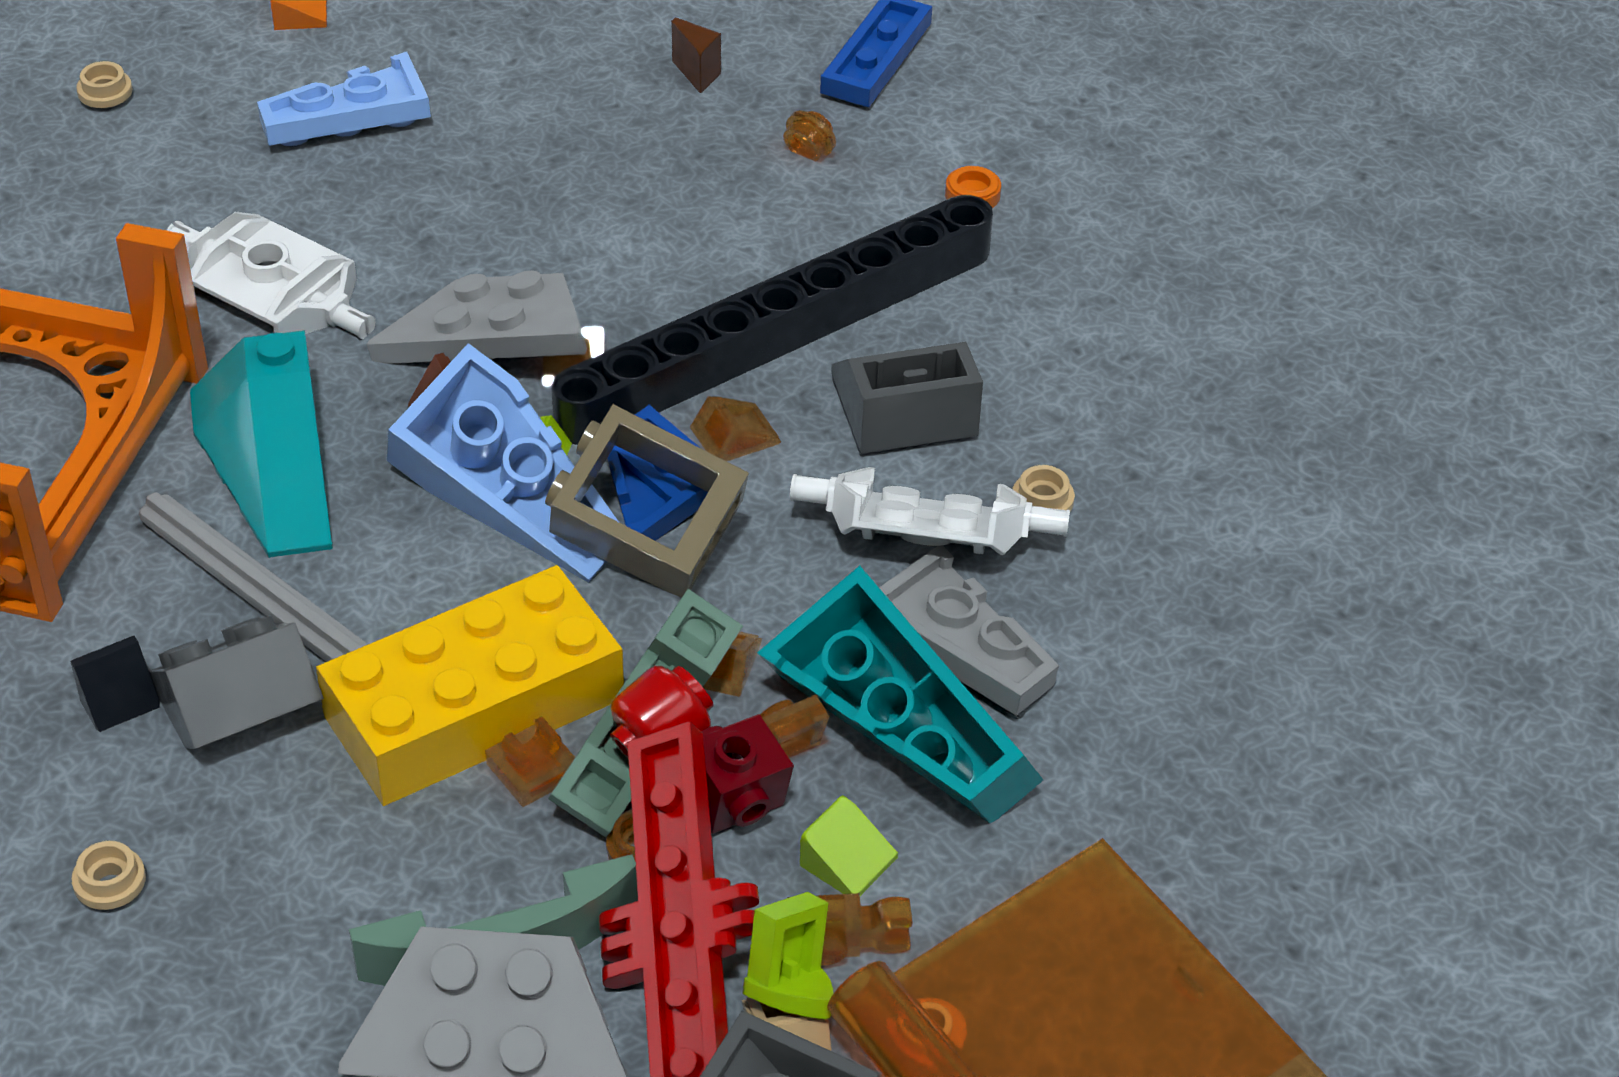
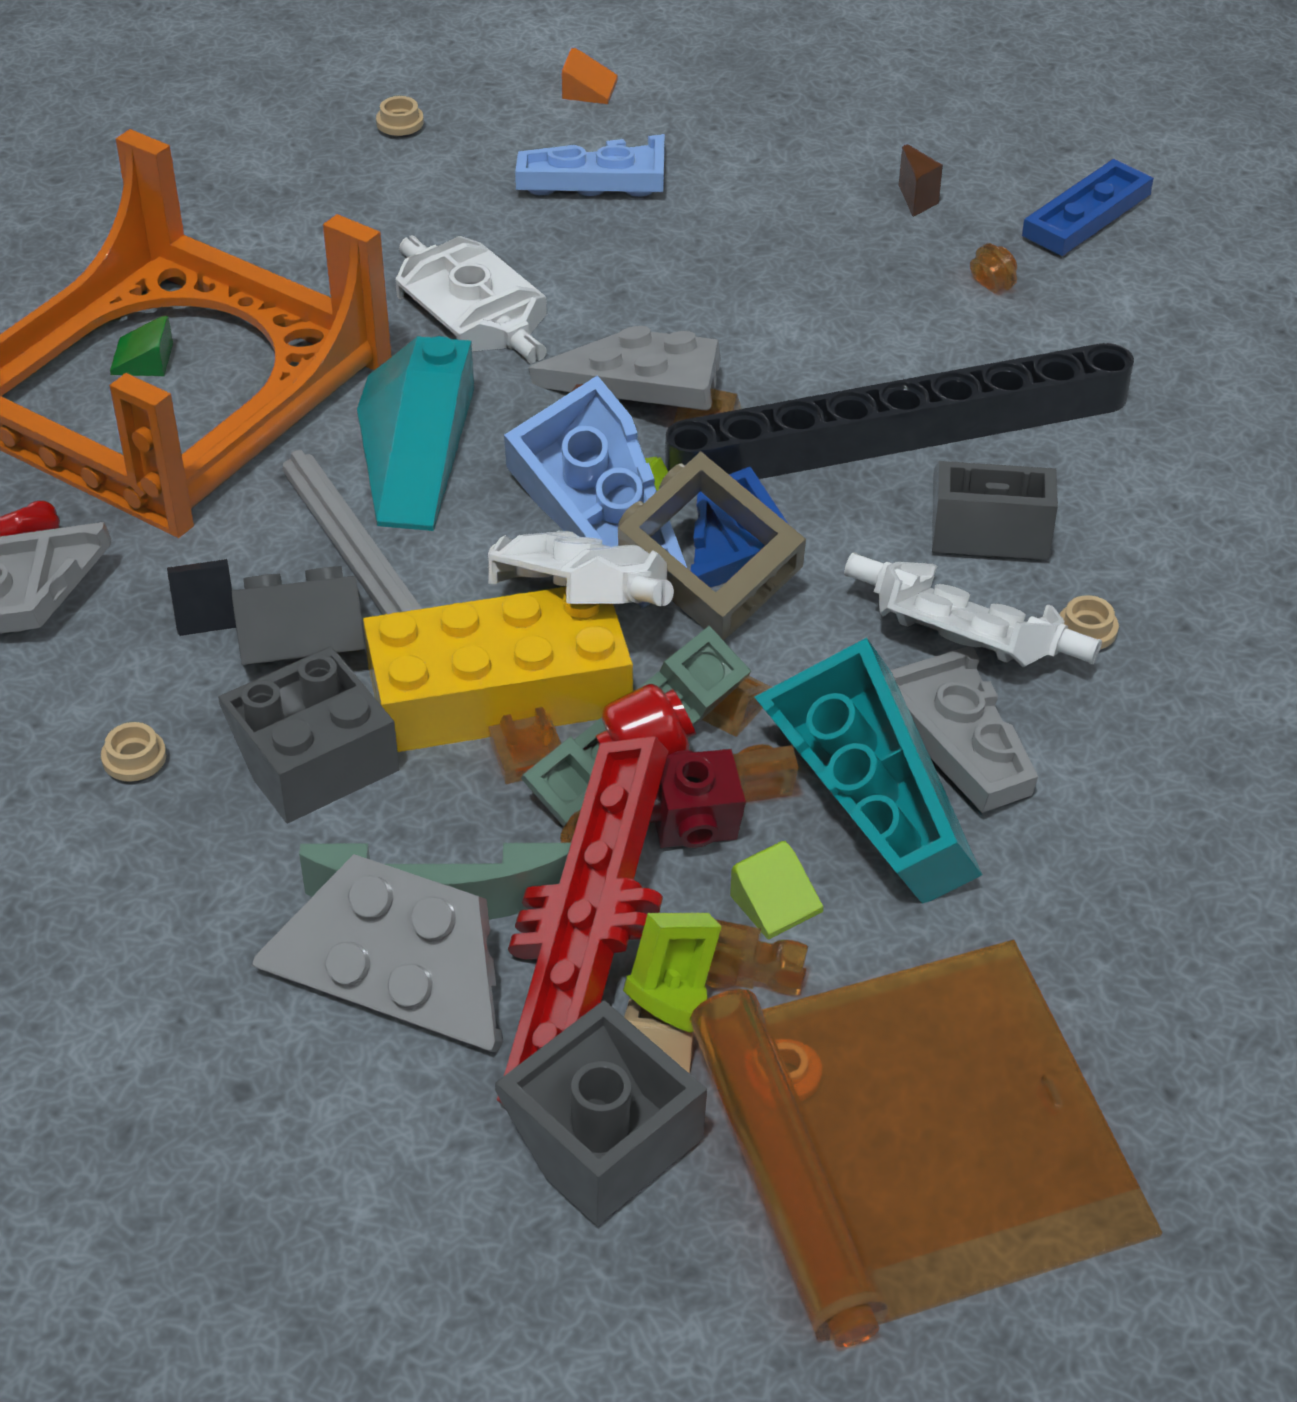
camera: 20 degrees right, 0 degrees up
(302, 805) = (311, 733): none -> dark grey slope
(550, 558) = (585, 566): none -> white plate
(732, 428) = (823, 505): clear orange slope -> none
(975, 182) = (1137, 339): orange tile -> none

